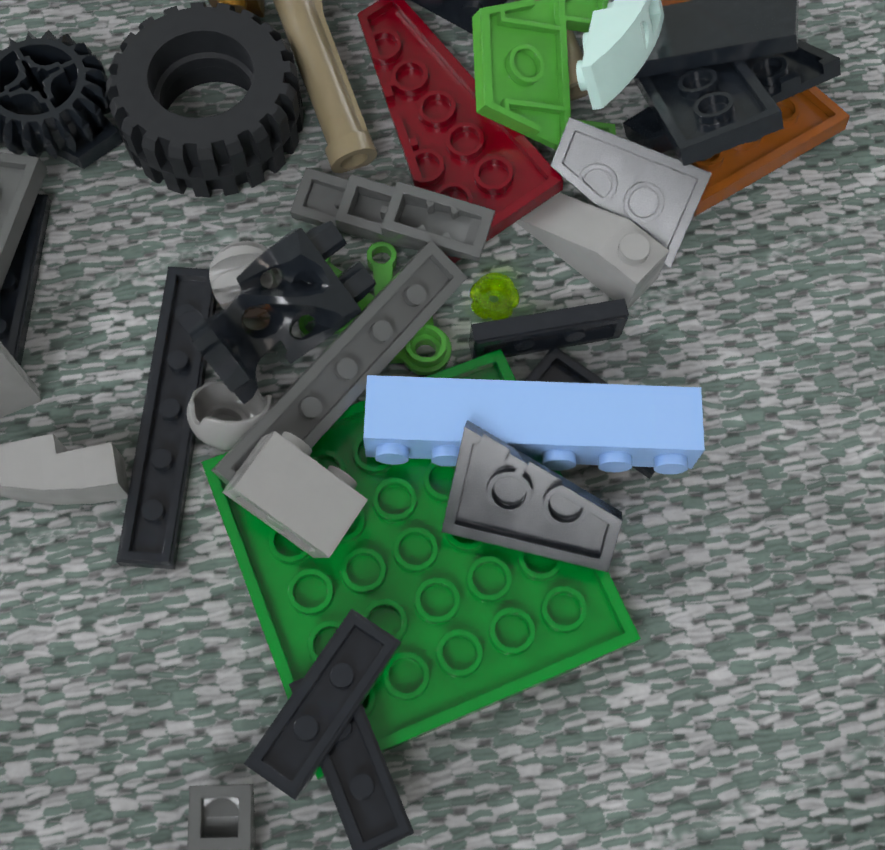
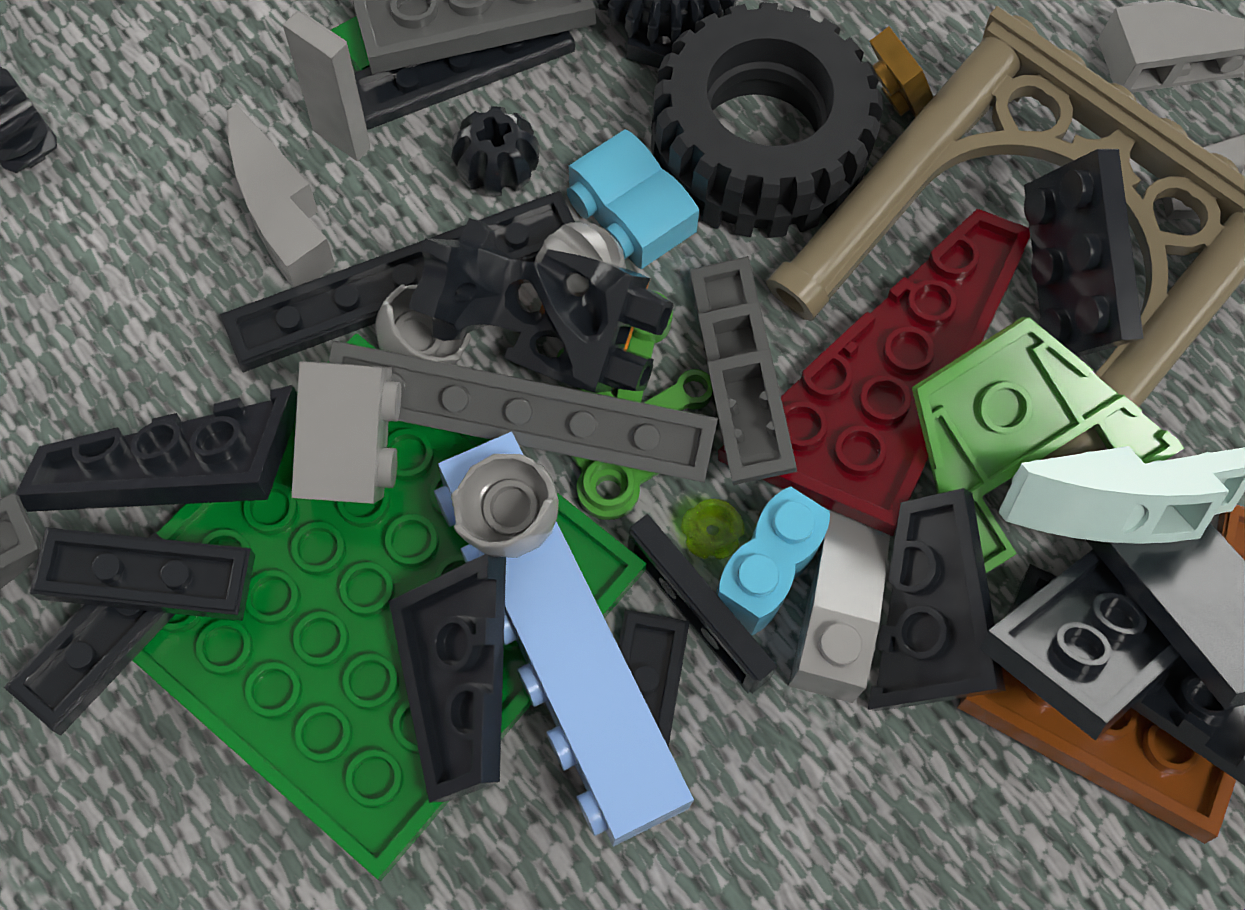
camera: 60 degrees right, 0 degrees up
(108, 291) = (495, 151): none -> black piece
(206, 217) = (632, 198): none -> medium azure brick
(240, 631) = (168, 461): none -> black wing
(434, 396) = (505, 505): none -> light grey hair
(540, 266) = (778, 552): none -> medium azure brick

